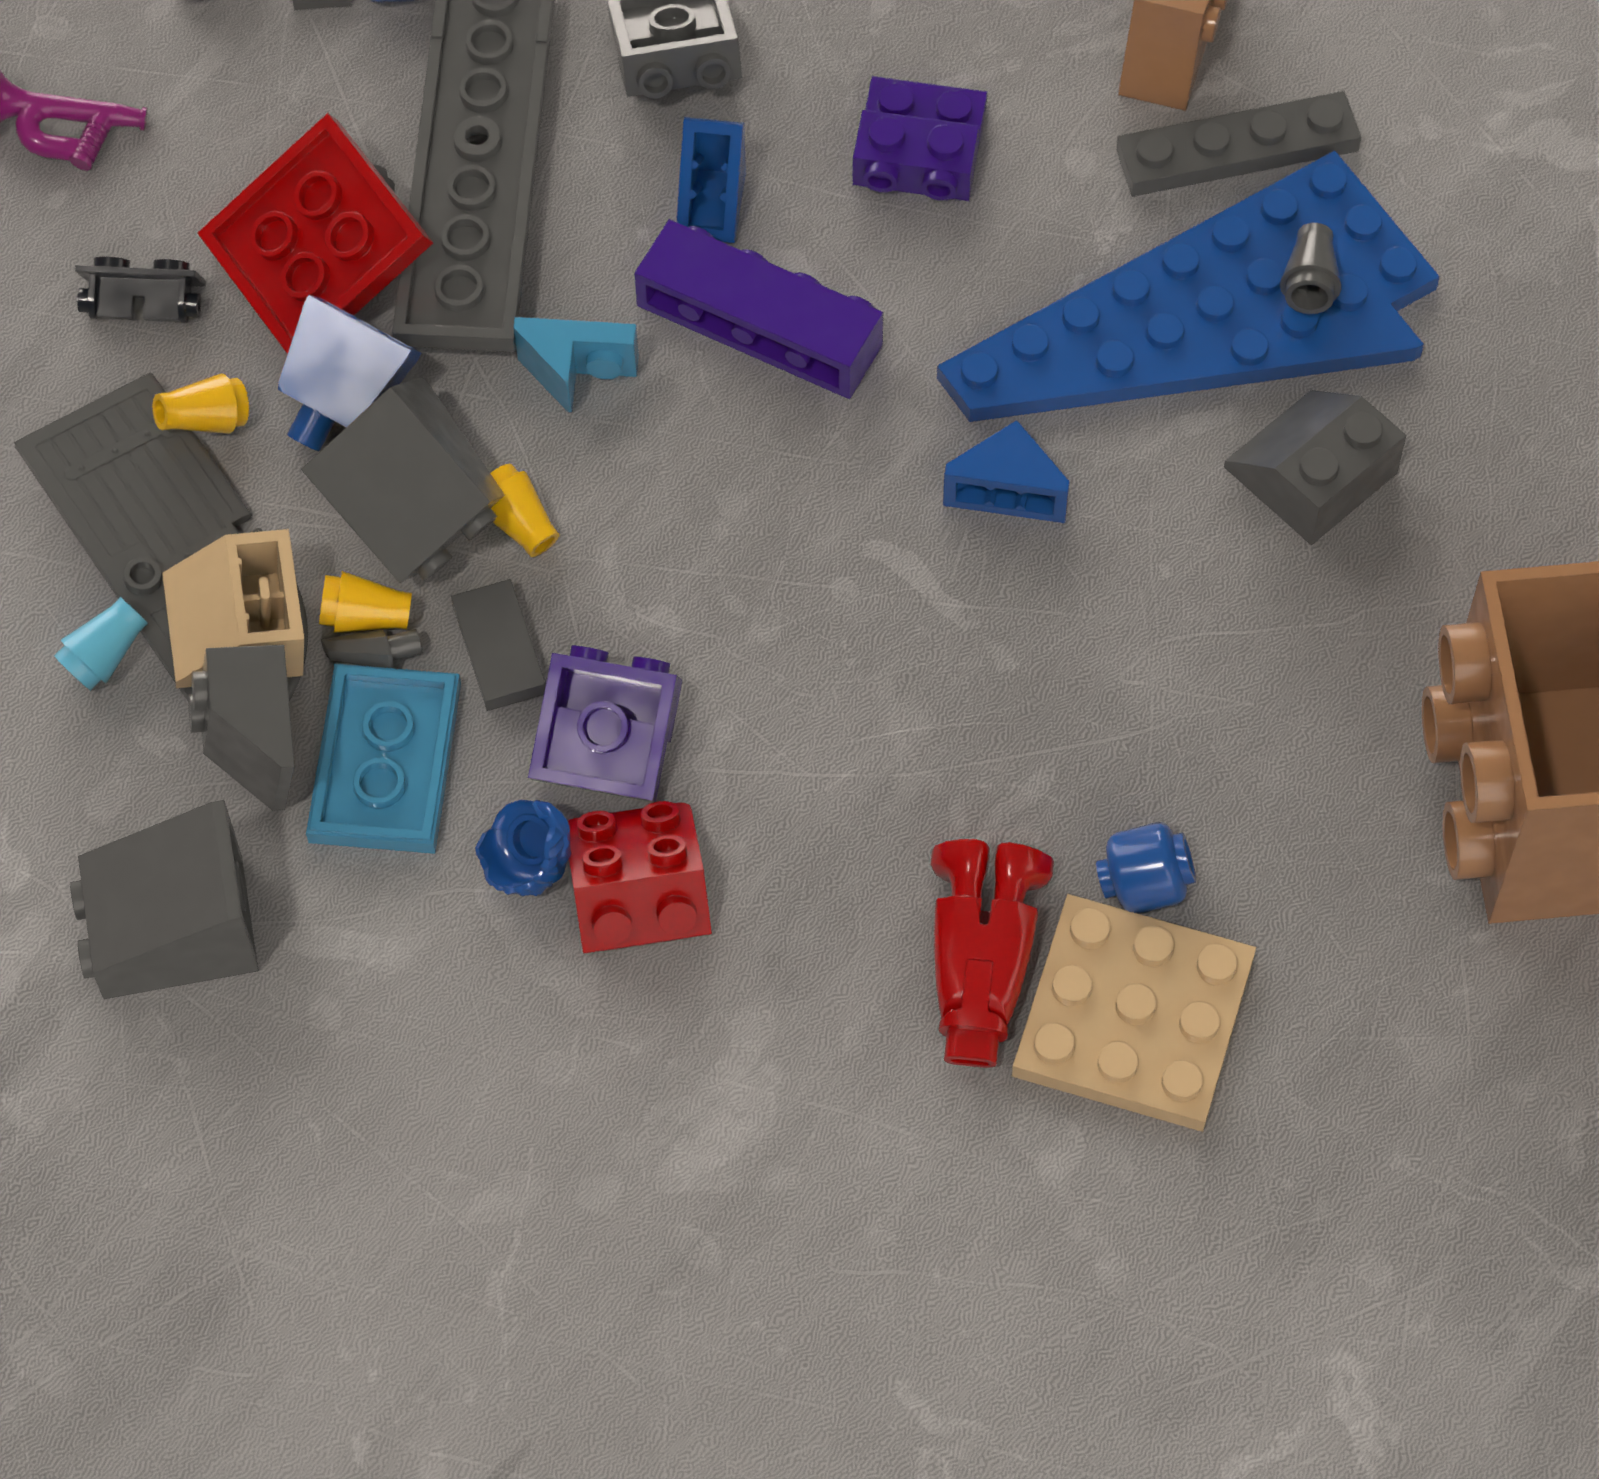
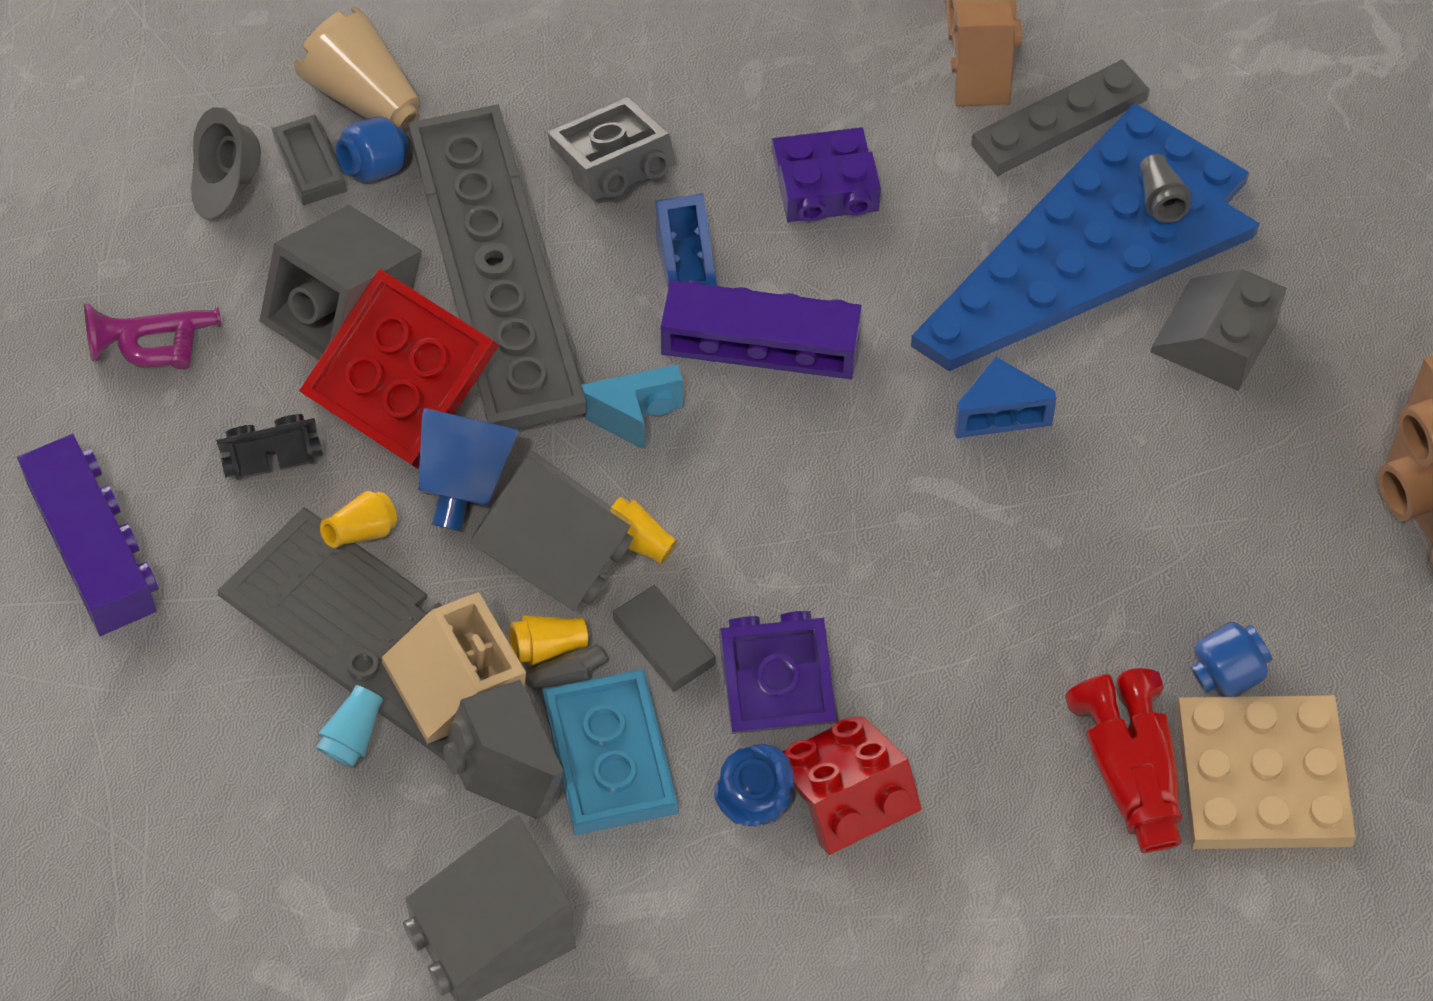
camera: 20 degrees left, 5 degrees down
(278, 88) = (325, 270): none -> dark grey slope

